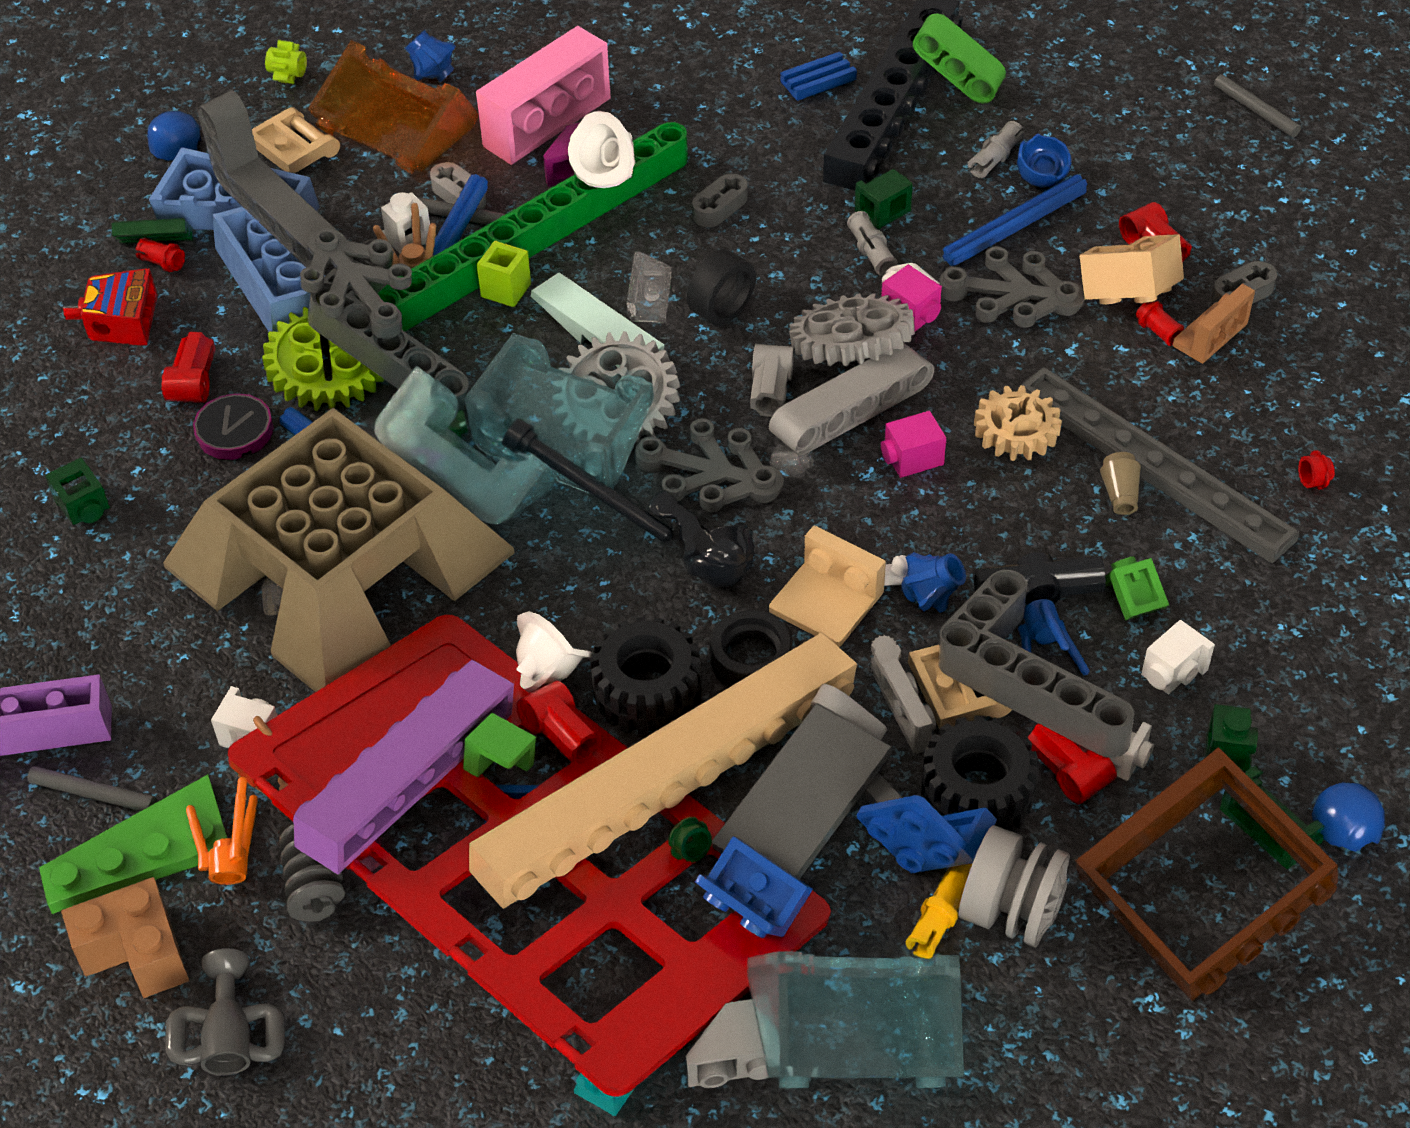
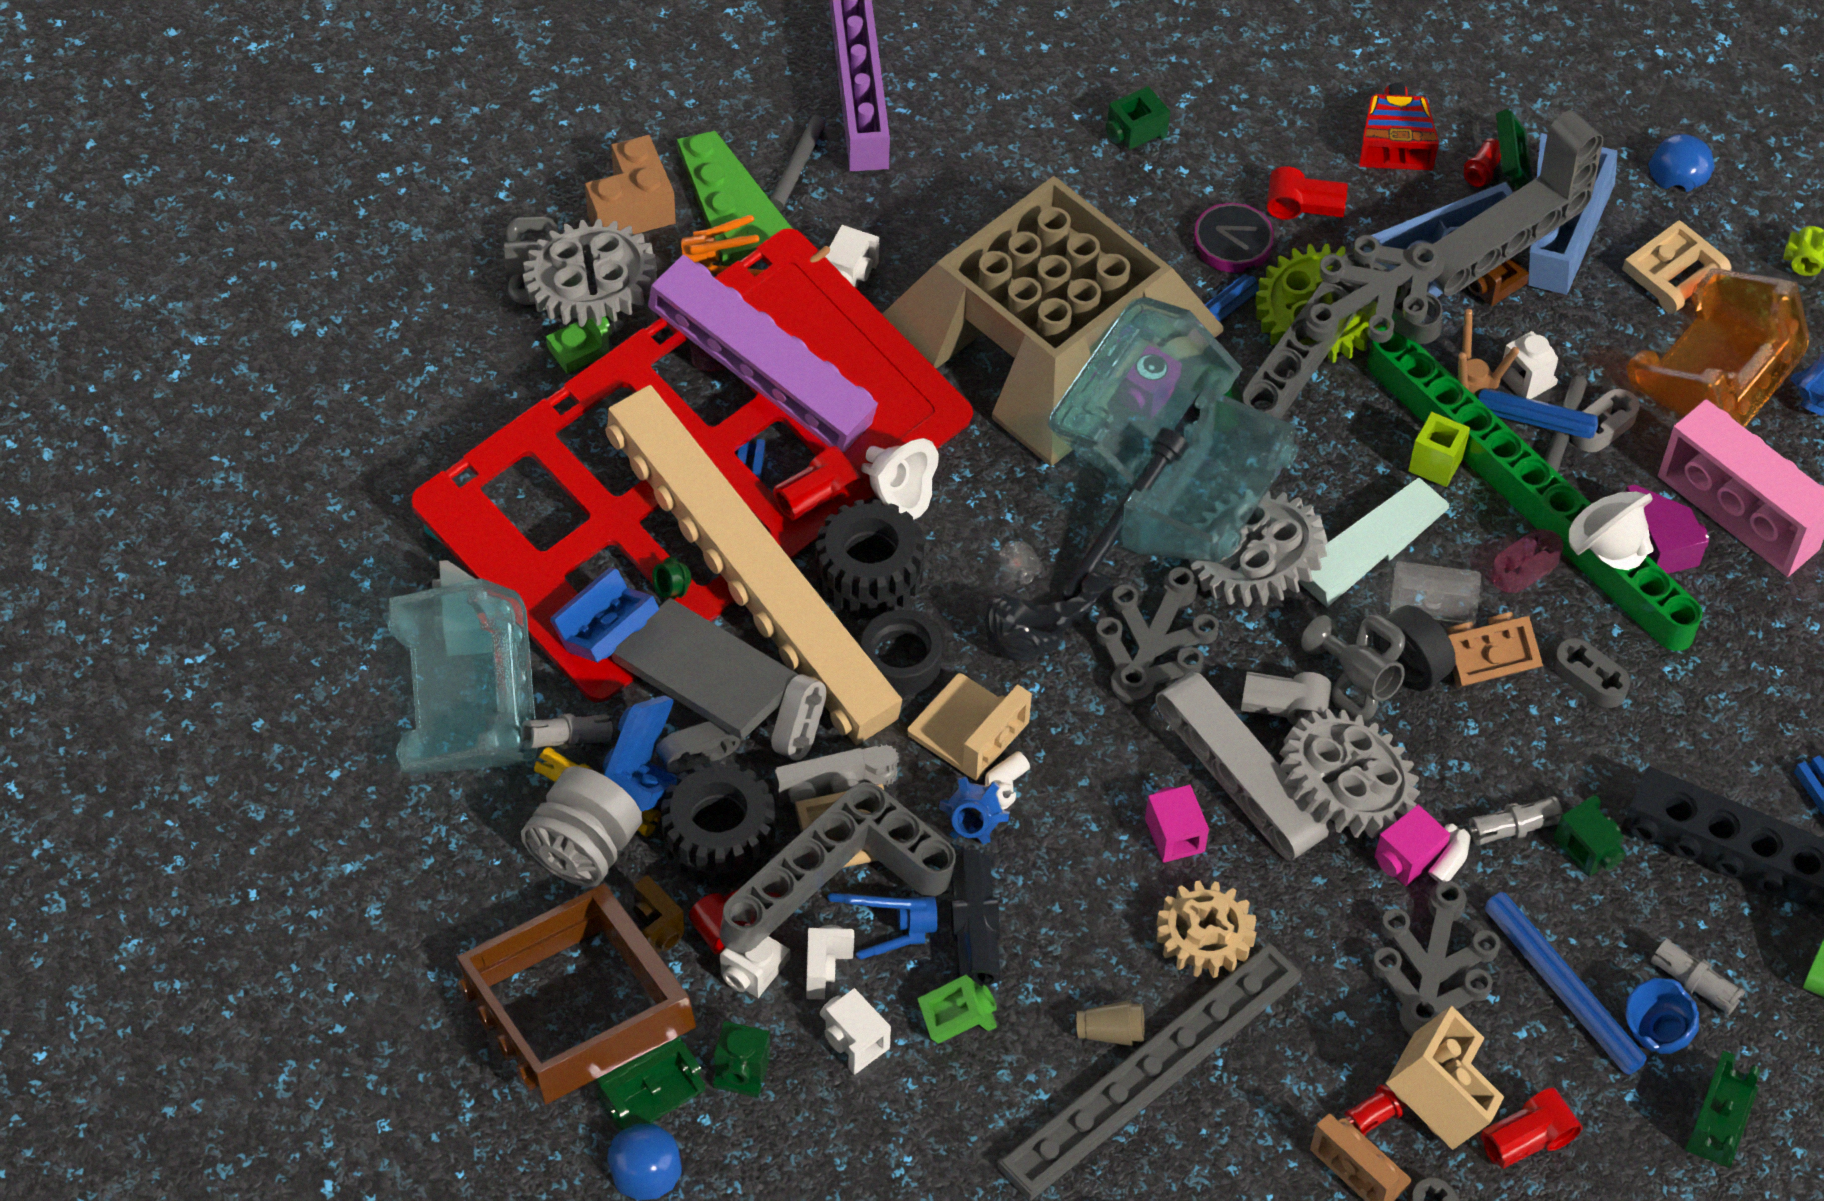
camera: 90 degrees right, 5 degrees up
(274, 946) = (559, 279): none -> light grey gear
(344, 974) = (579, 345): none -> bright green bracket
(500, 743) = (778, 425): bright green panel -> none
(613, 231) = (1532, 566): none -> clear pink beam
(628, 575) = (1018, 562): none -> clear piece
(695, 242) = (1493, 650): none -> medium nougat bracket
(742, 317) = (1364, 666): none -> dark grey piece
(889, 922) = (566, 731): none -> light grey pin
(1086, 821) = (658, 914): none -> dark brown bracket
(1110, 141) = (1724, 1112): none -> dark green hinge
(1122, 684) = (823, 948): none -> white bracket

